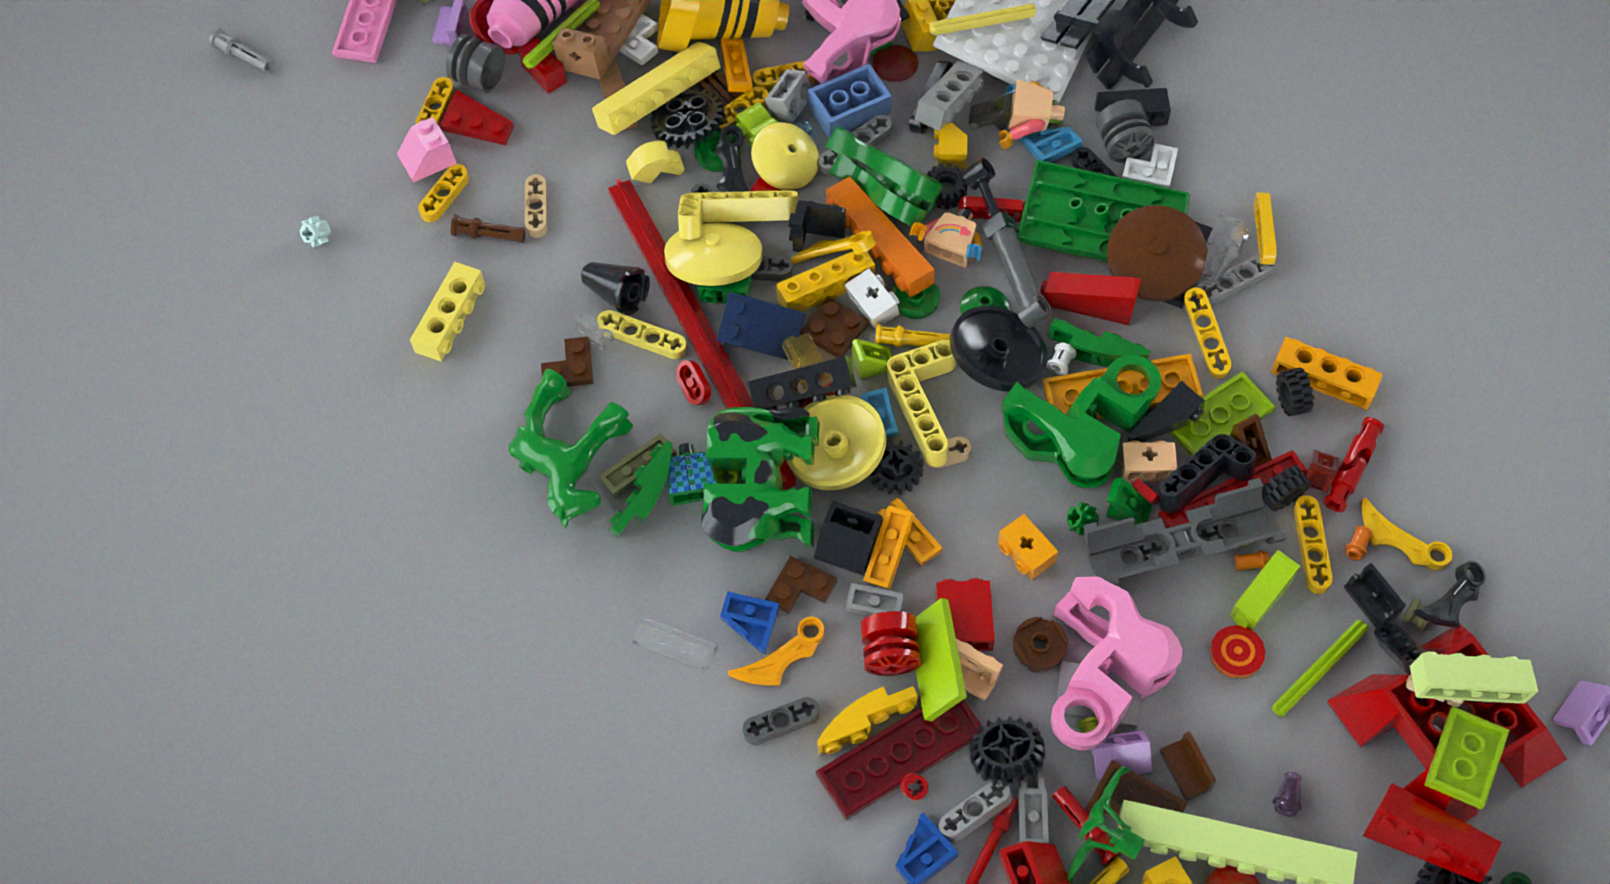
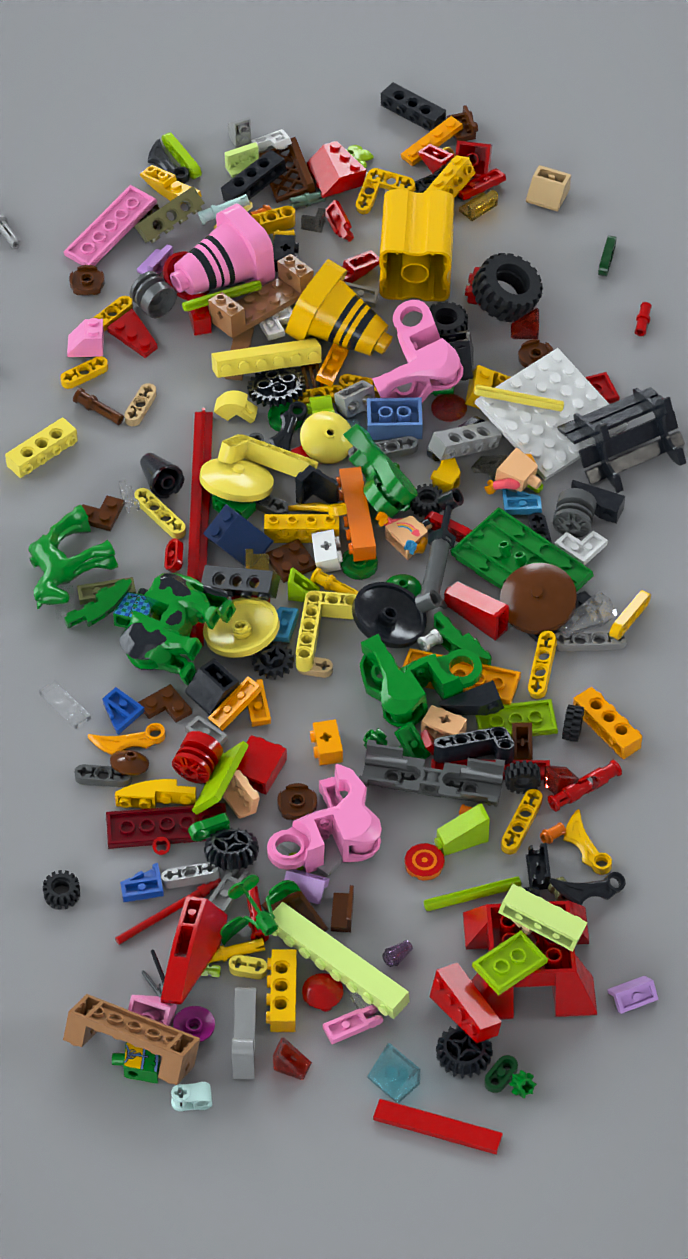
camera: 25 degrees right, 10 degrees down
(383, 87) = (83, 287): none -> reddish brown plate
(804, 687) = (129, 762): none -> reddish brown dish
(961, 735) = (203, 829): none -> green piece

